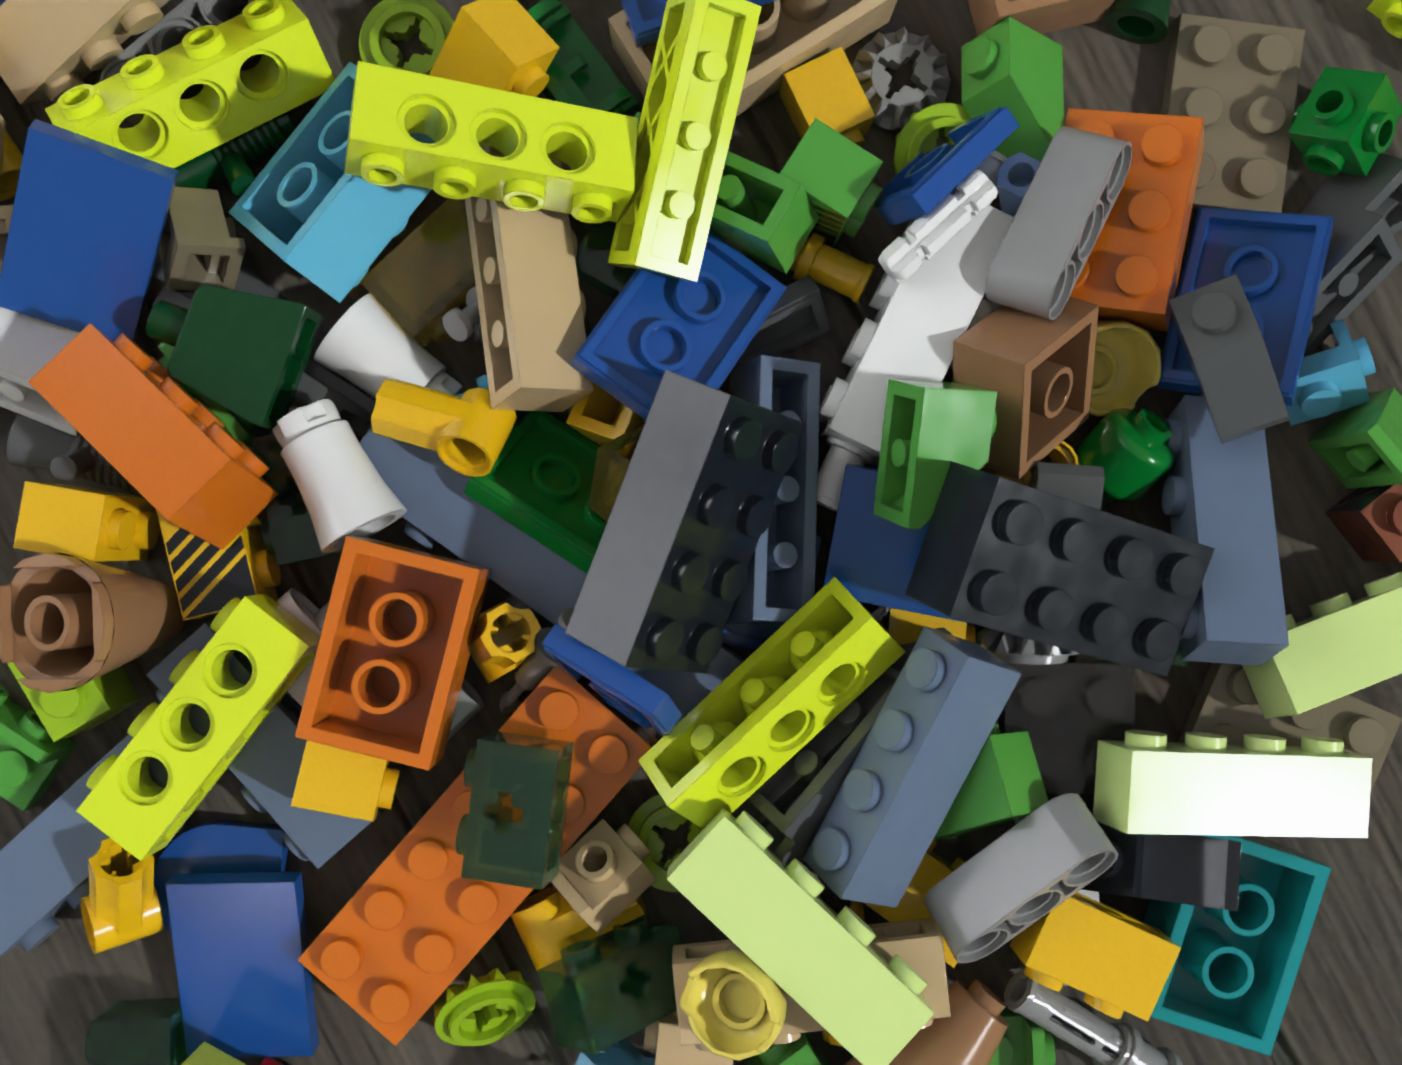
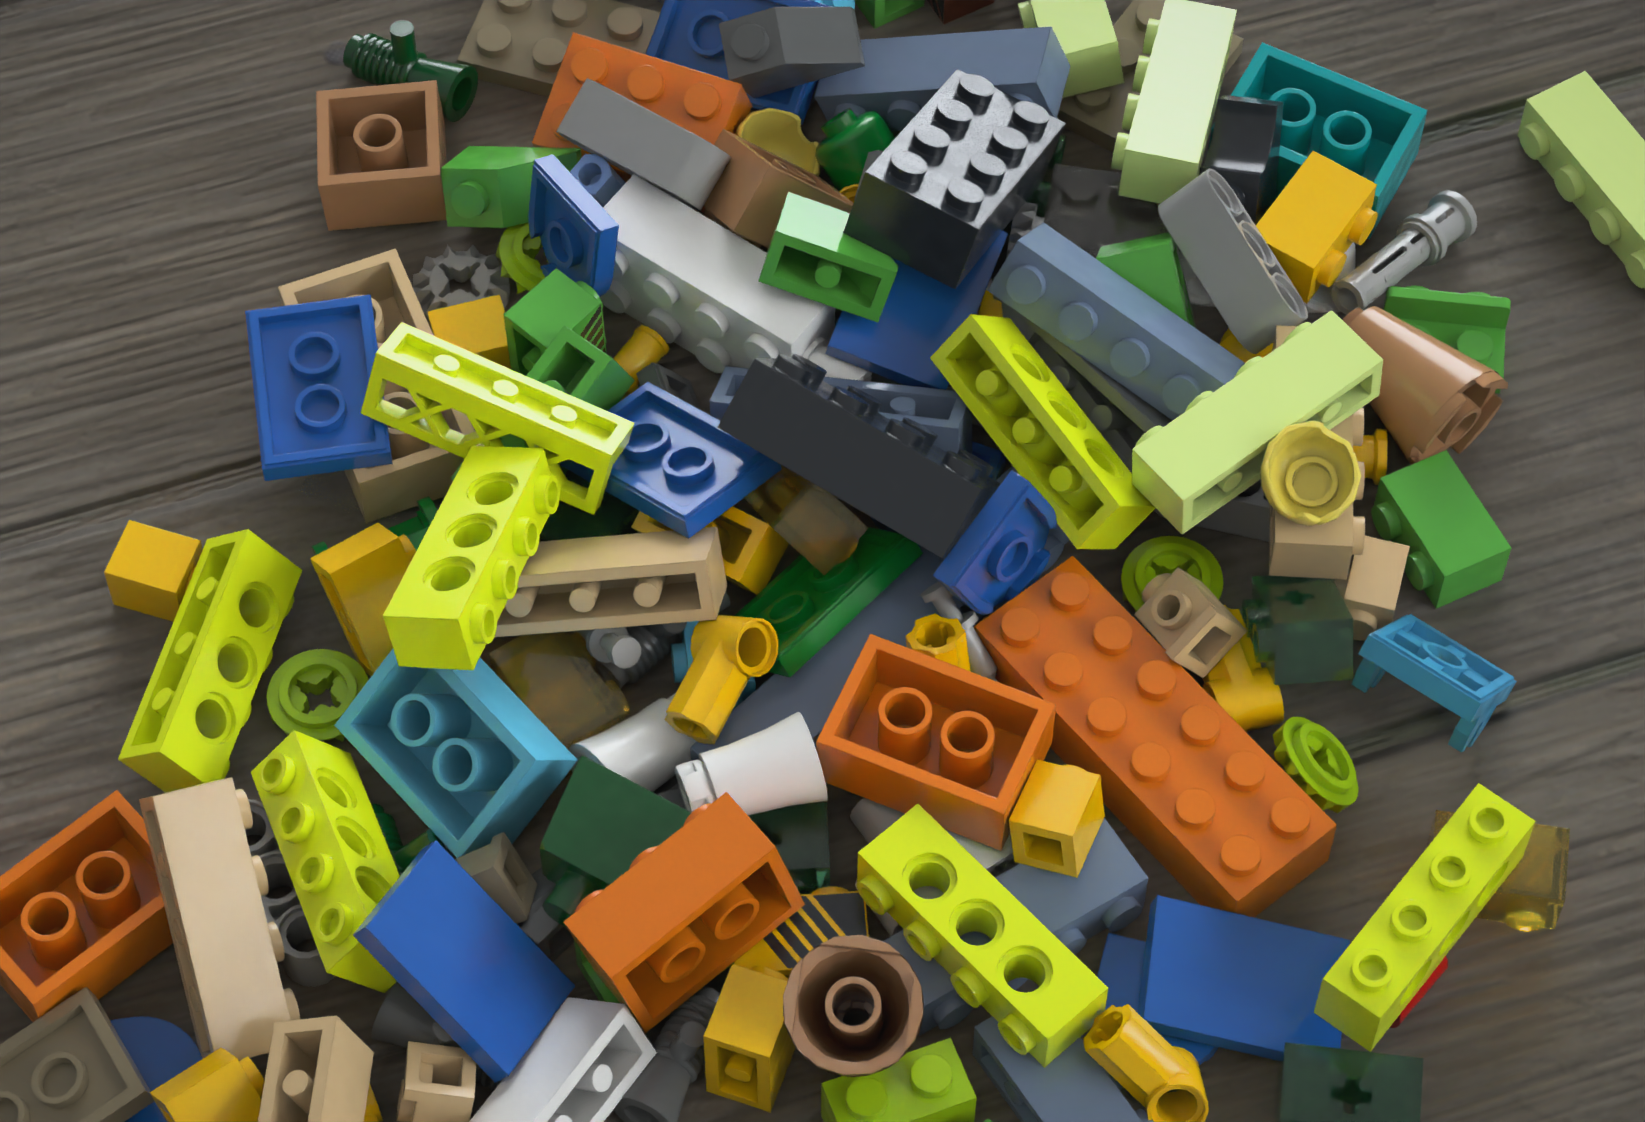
camera: 80 degrees left, 30 degrees down
(538, 778) = (1082, 623): clear green brick -> none
(938, 227) = (634, 234): white axle -> none

